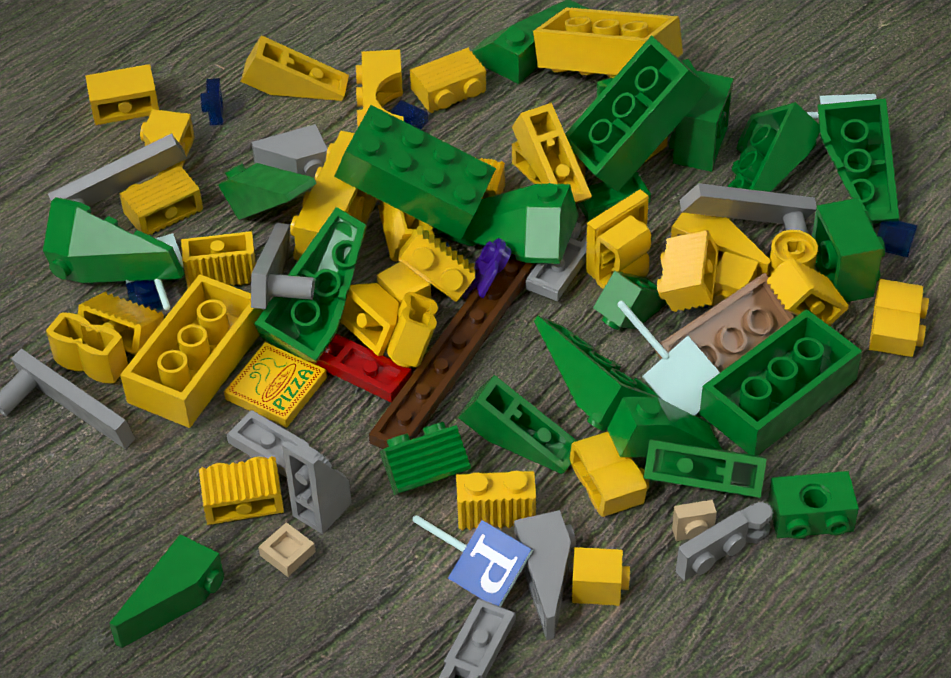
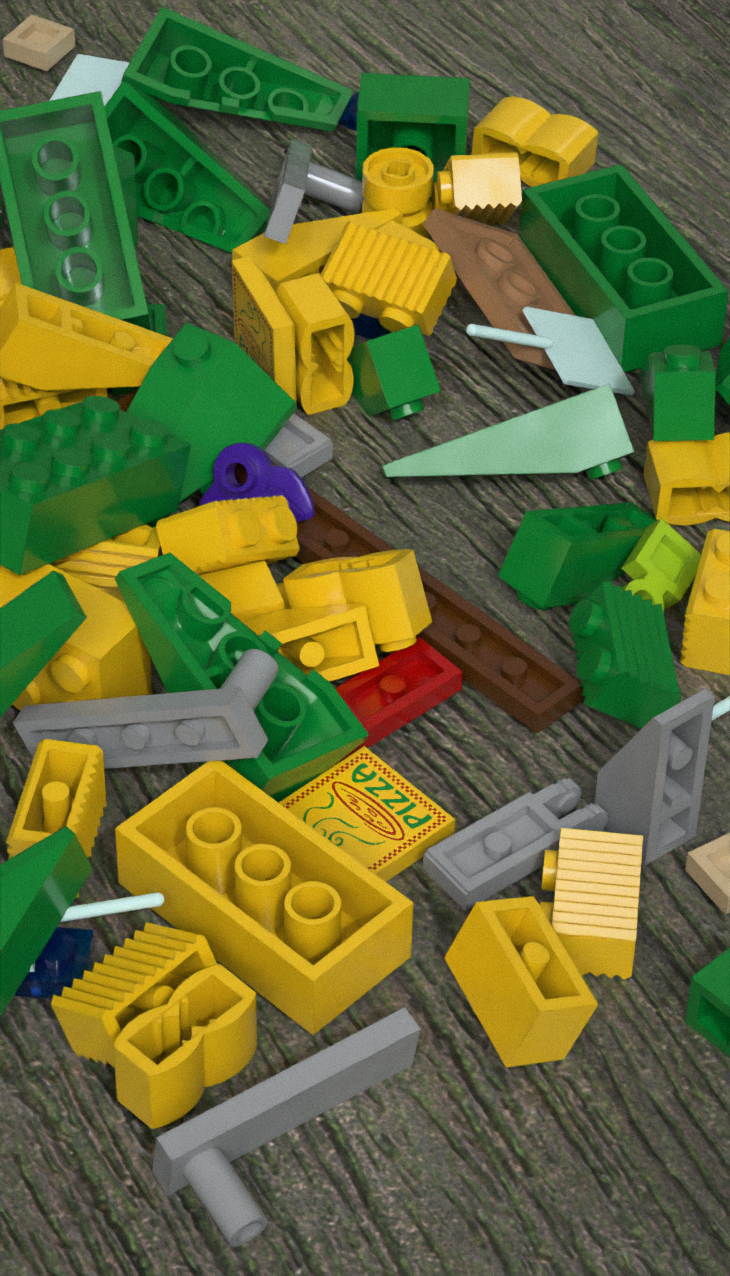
camera: 75 degrees left, 5 degrees down
(164, 465) = (520, 981): none -> yellow brick
(514, 459) = (661, 565): none -> lime plate
(864, 71) = (39, 42): none -> tan plate

